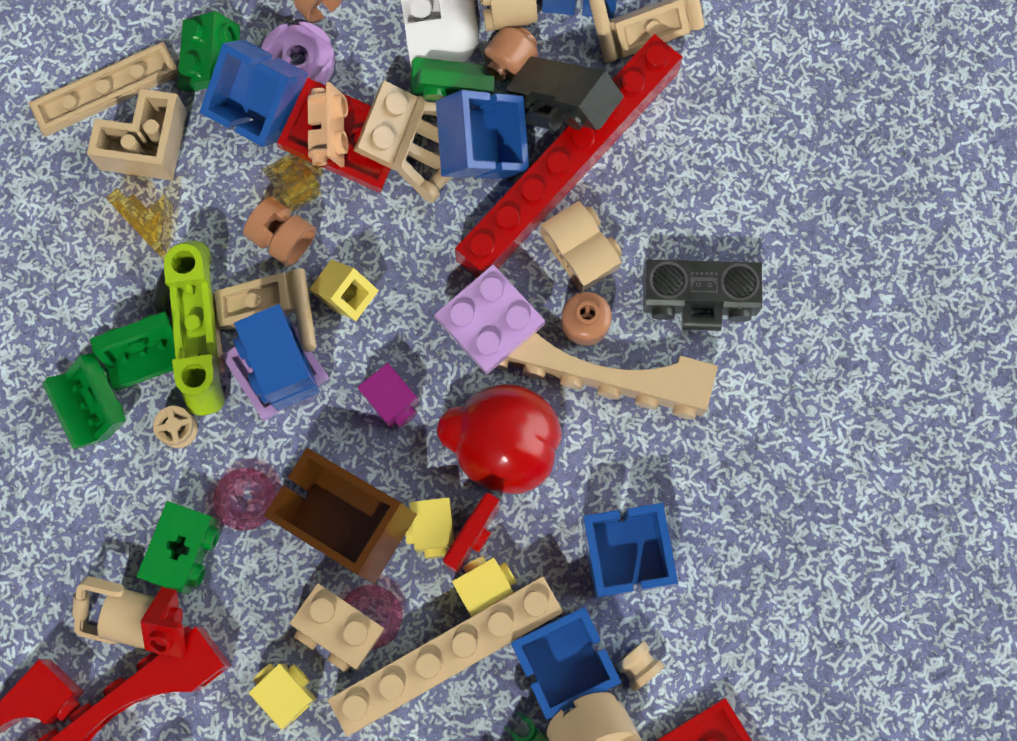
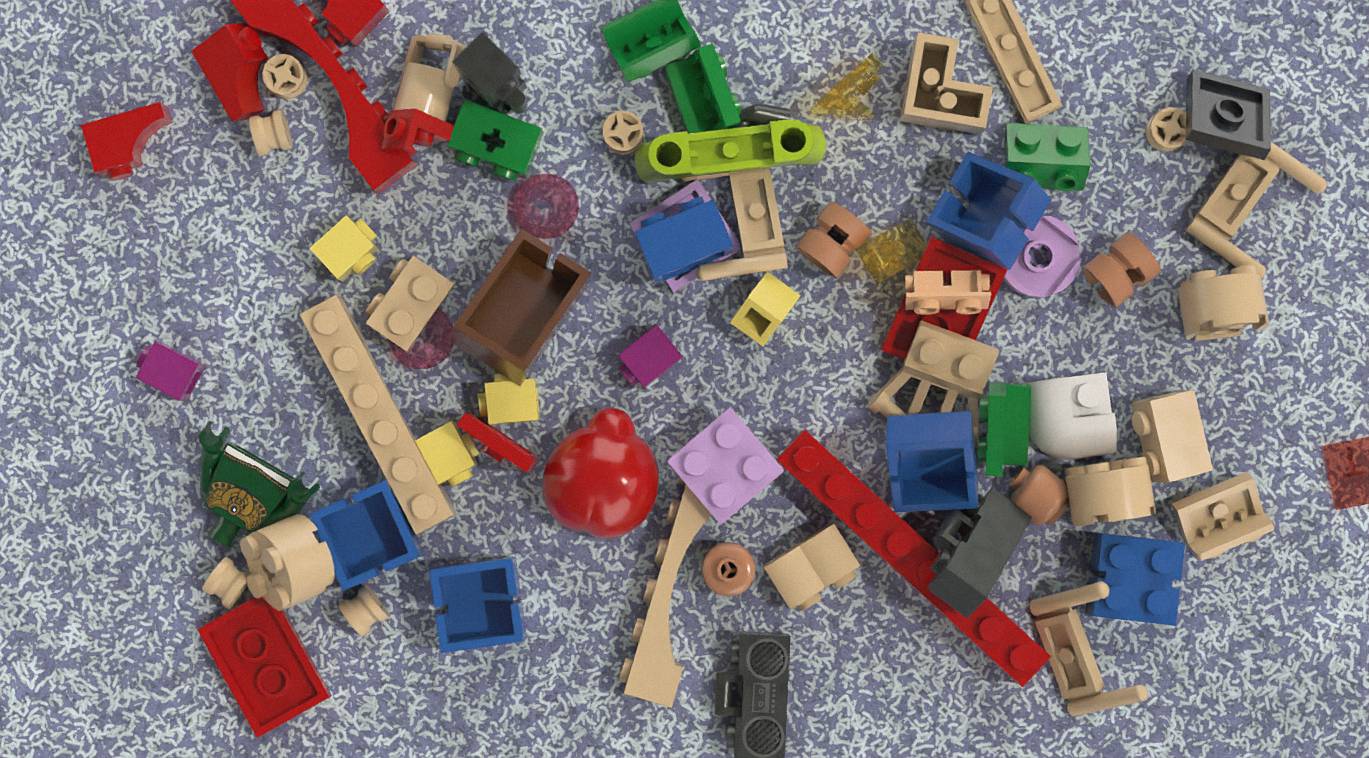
camera: 90 degrees right, 10 degrees up
(110, 545) = (492, 75): none -> pearl dark grey piece

